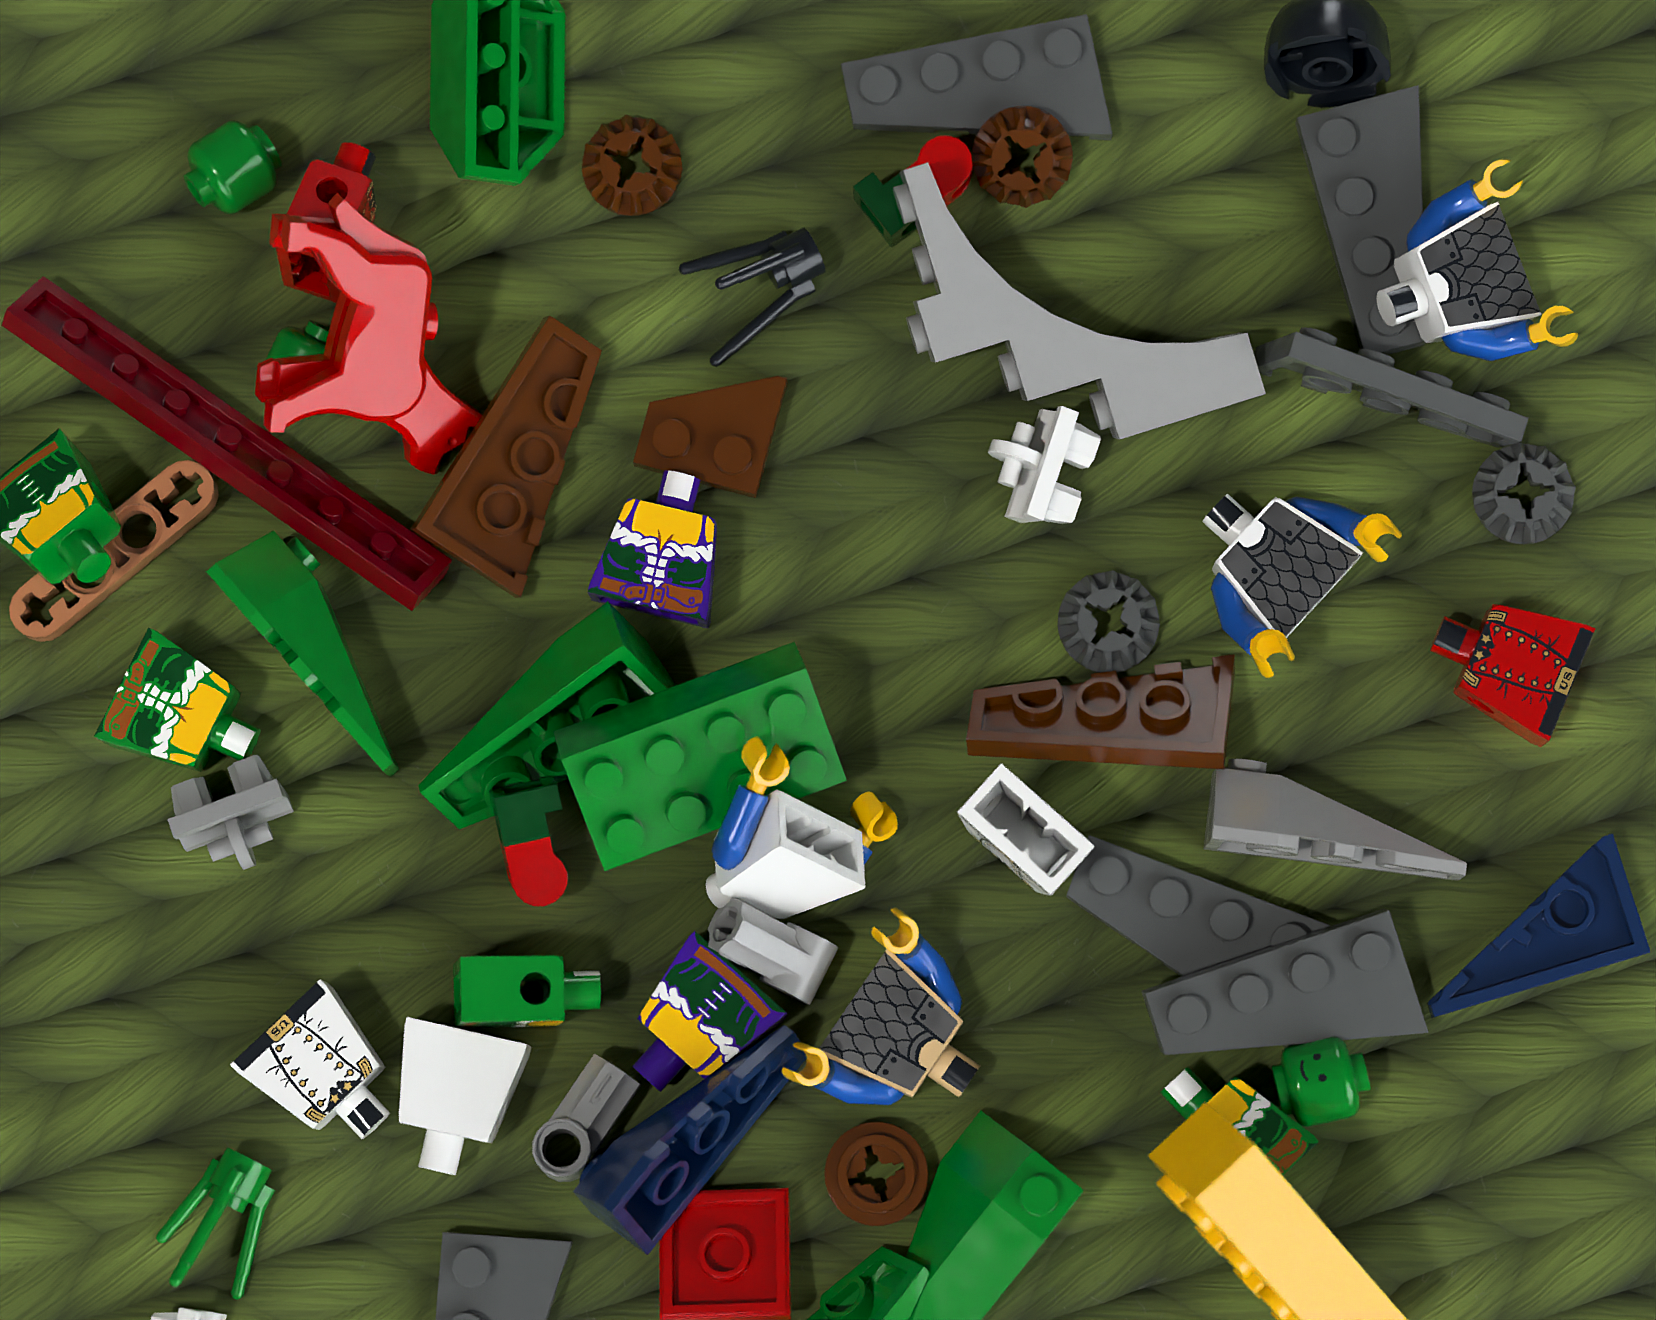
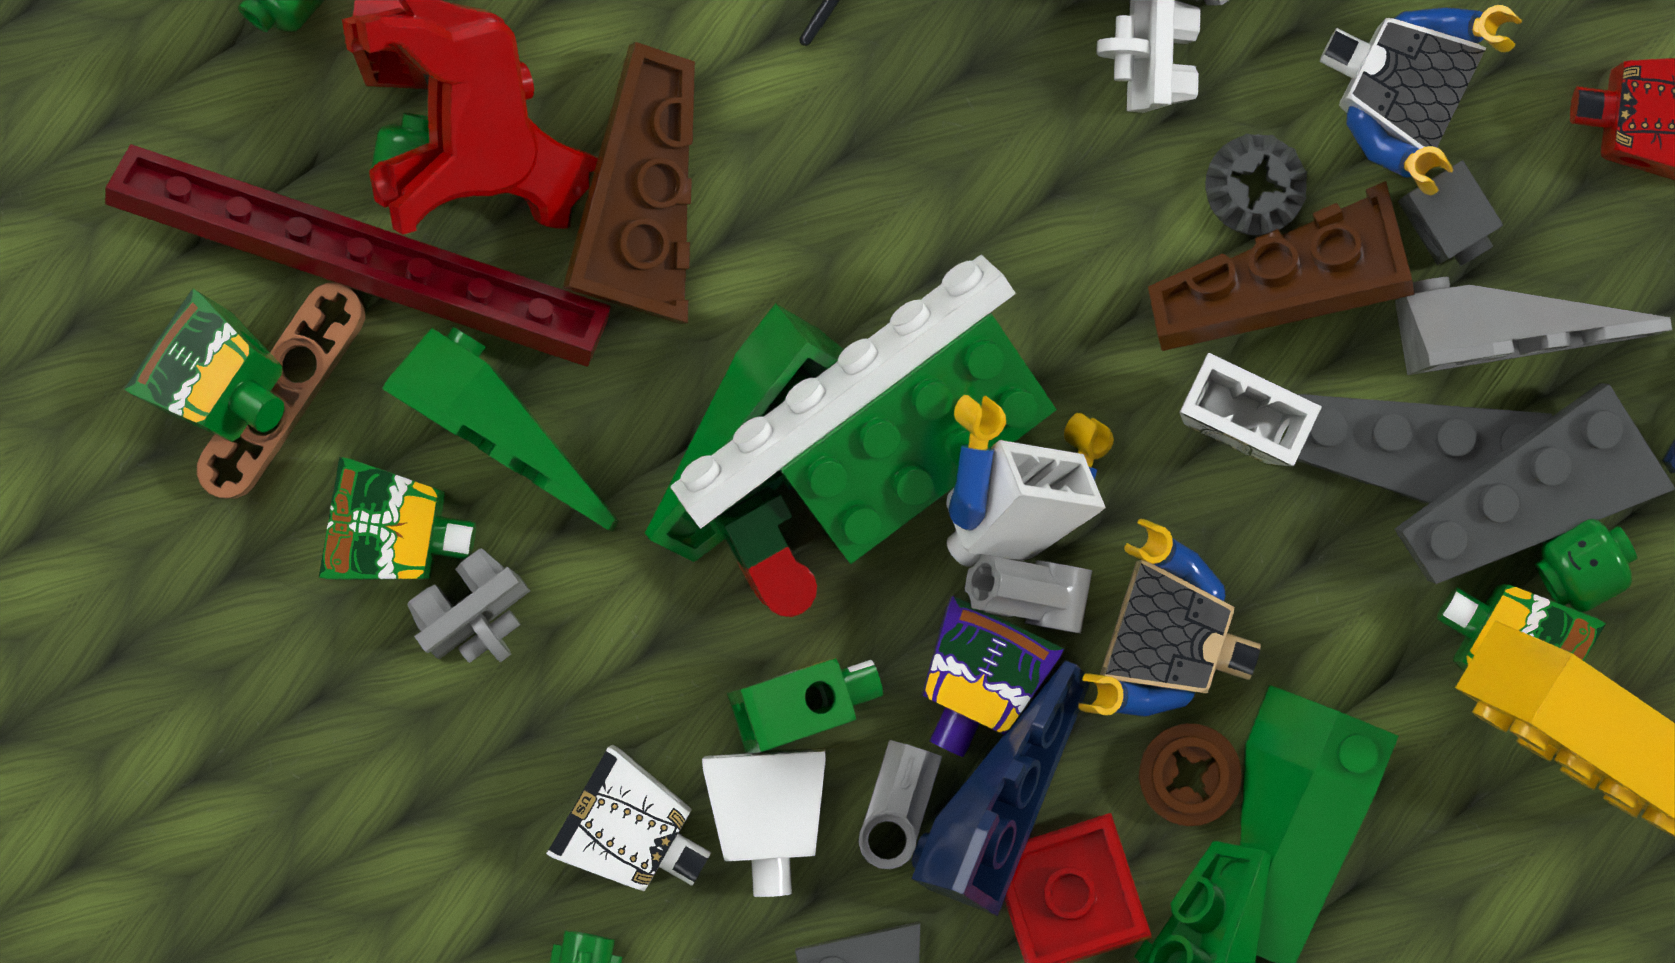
camera: 25 degrees left, 5 degrees up
(624, 706) = (856, 379): none -> white plate
(661, 556) = (812, 244): torso -> none
(714, 434) = (825, 112): reddish brown wing -> none
(1287, 706) = (1454, 218): none -> dark grey brick

